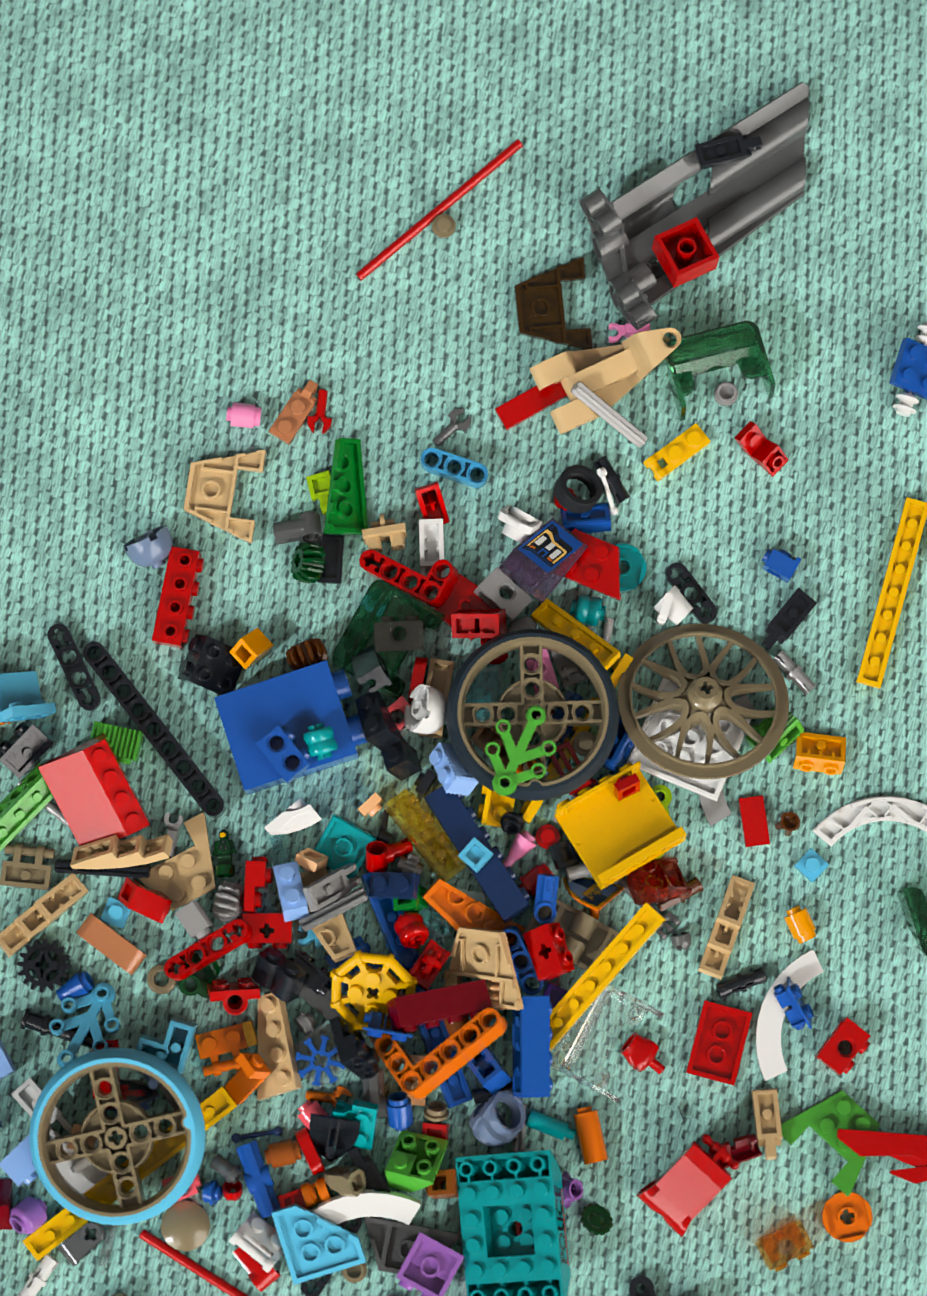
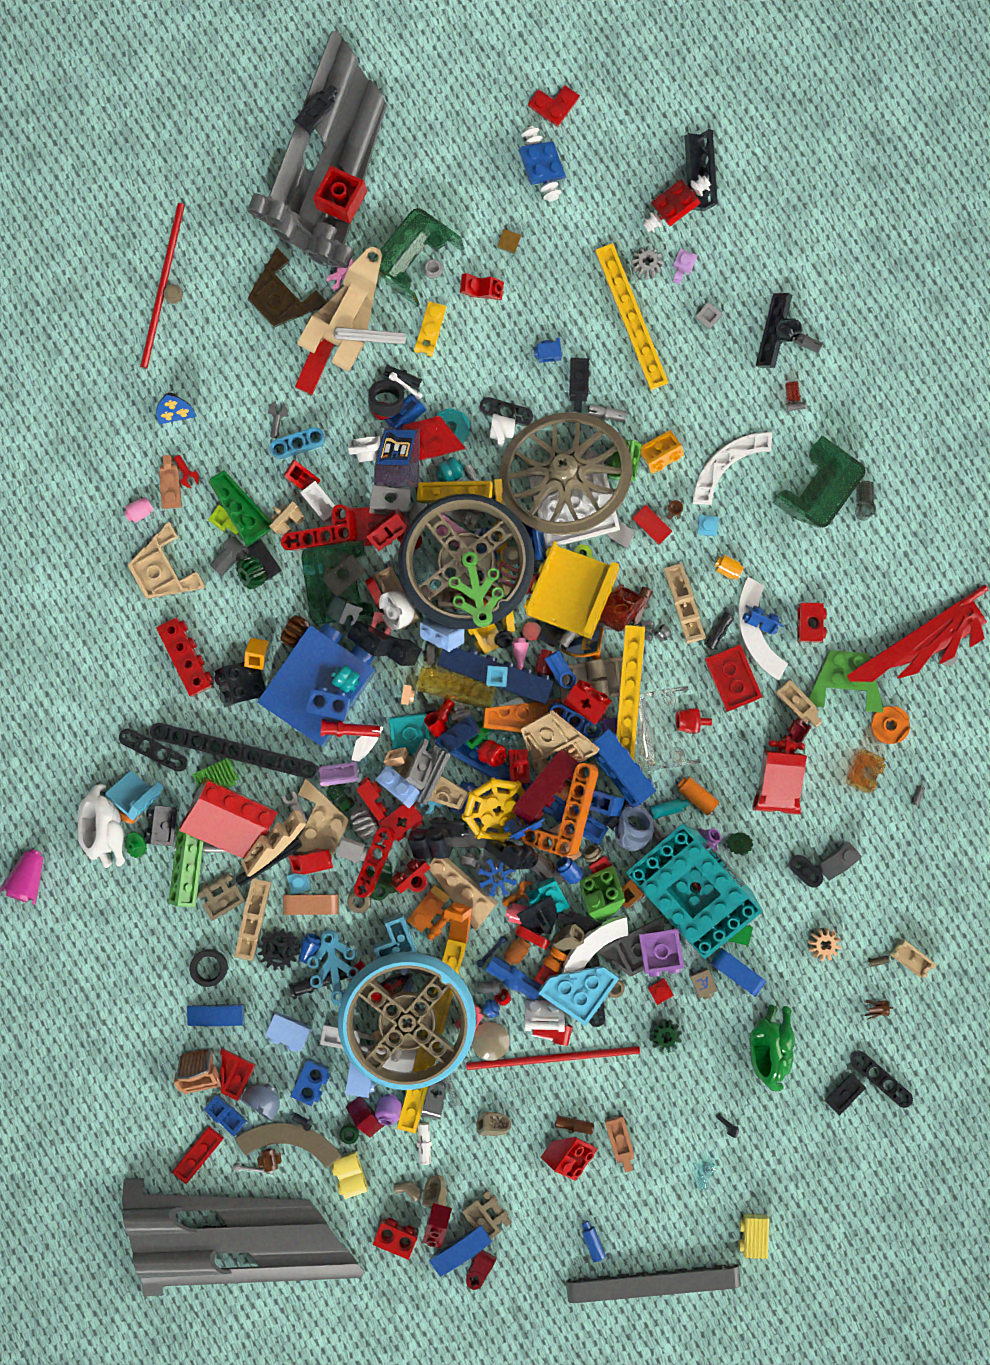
camera: 40 degrees left, 5 degrees up
(150, 548) = (143, 638): sand blue cylinder -> none
(240, 832) = (338, 773): none -> lavender plate
(276, 787) = (340, 728): none -> red pin
(356, 341) = (173, 408): none -> blue shield
(626, 786) = (558, 562): red plate -> none
(825, 423) = (509, 241): none -> pearl gold tile

